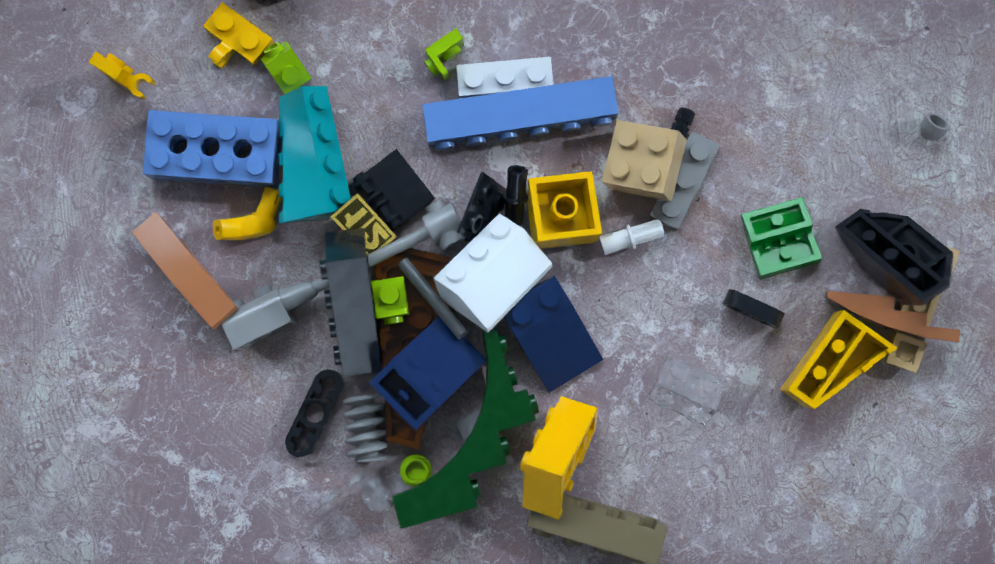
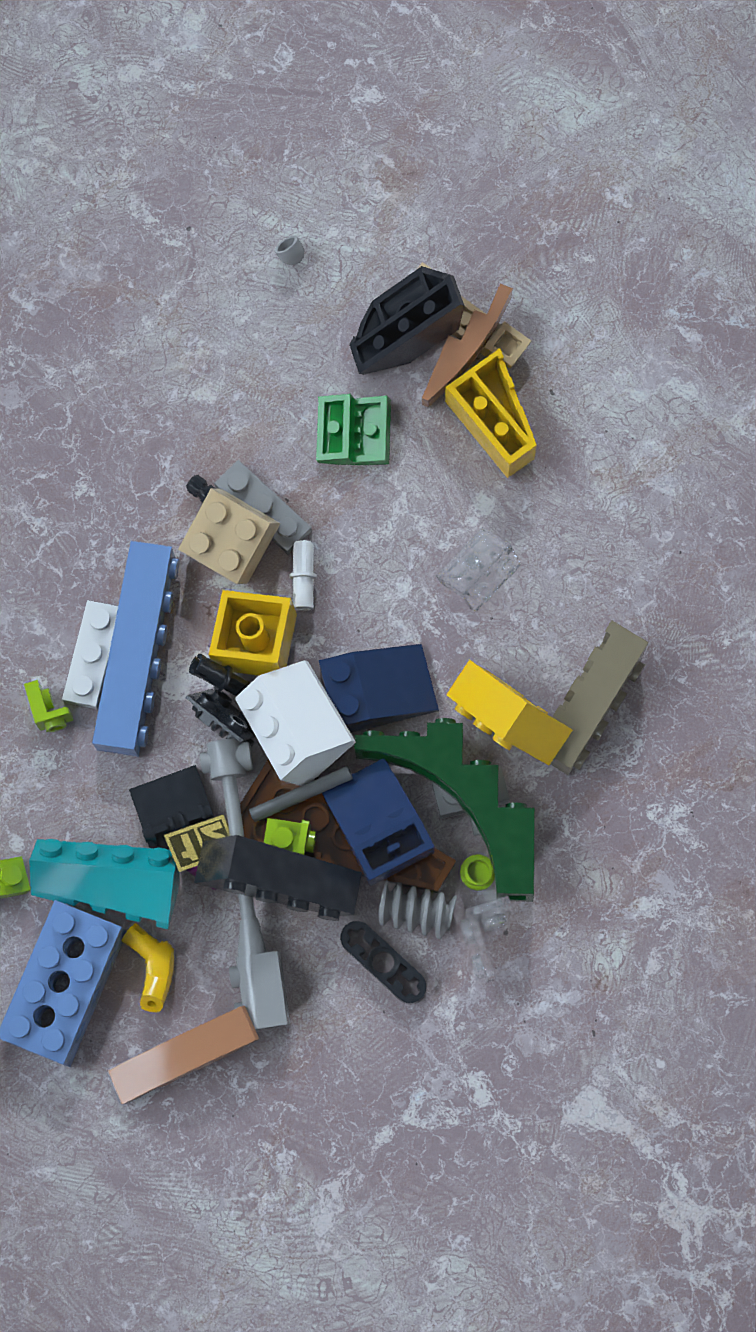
camera: 70 degrees left, 10 degrees down
(753, 308) = (416, 477): black beam -> none

